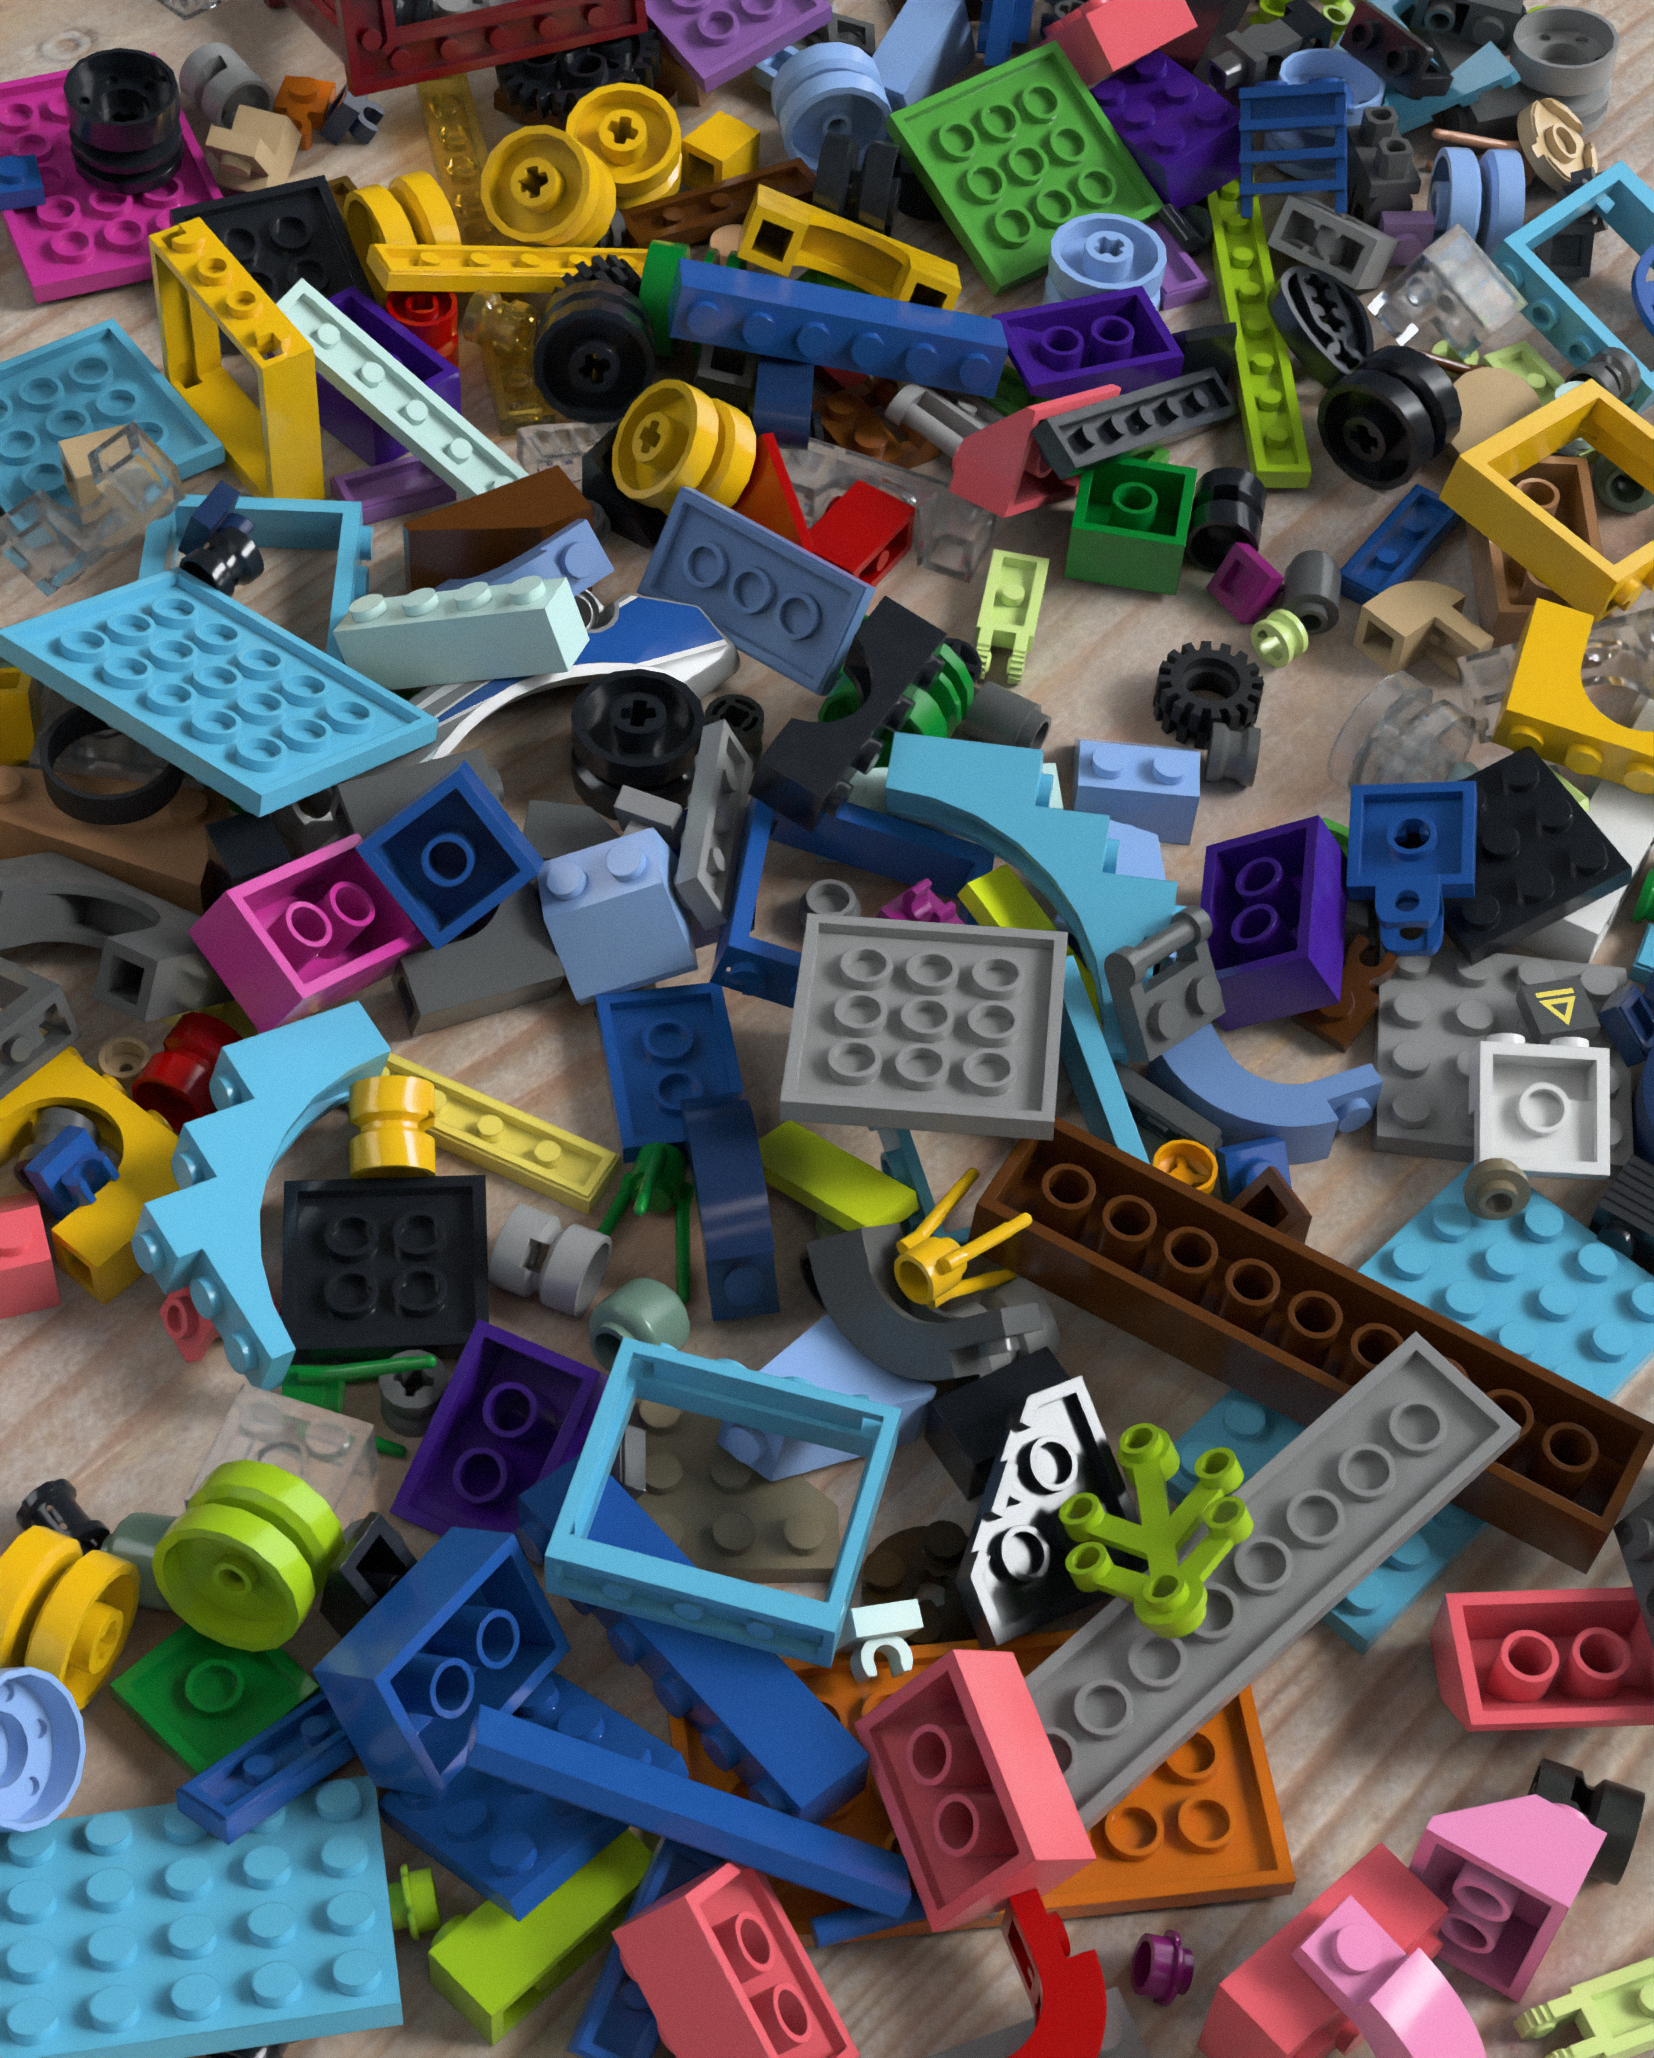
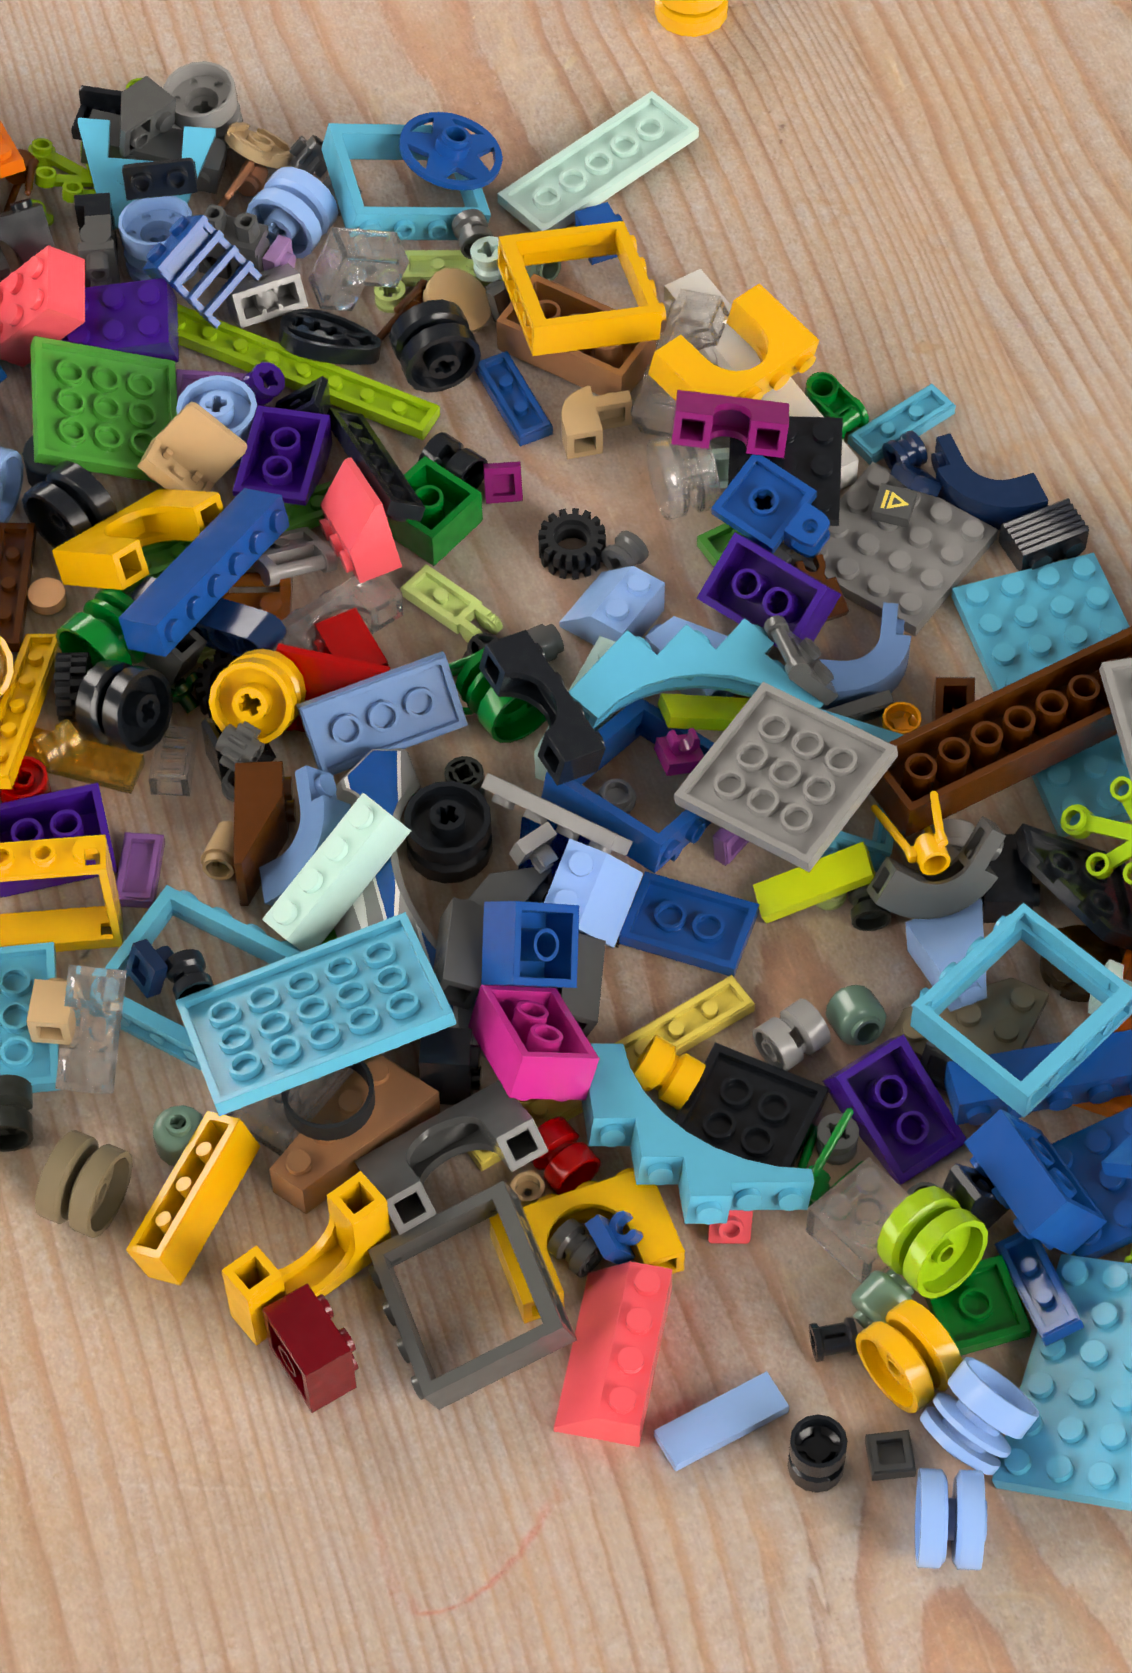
camera: 55 degrees left, 5 degrees up
(397, 397) = (136, 818): light aqua plate -> none
(594, 463) = (239, 745): none -> dark grey gear
(654, 1186) = (763, 966): green plant -> none
(731, 1205) = (806, 922): dark blue arch -> none
(1013, 259) = (192, 451): none -> tan bracket
(1188, 226) = (196, 357): black plate -> none
(1191, 306) = (271, 375): none -> dark purple wheel
(1245, 1161) = (914, 689): blue plate -> none
(1279, 638) = (552, 488): yellowish green bush -> none
(1313, 591) = (535, 456): dark grey brick -> none
(1496, 1189) = (993, 592): dark tan plate -> none
(1517, 760) = (755, 422): none -> magenta arch
(1542, 1105) = (956, 545): white plate -> none

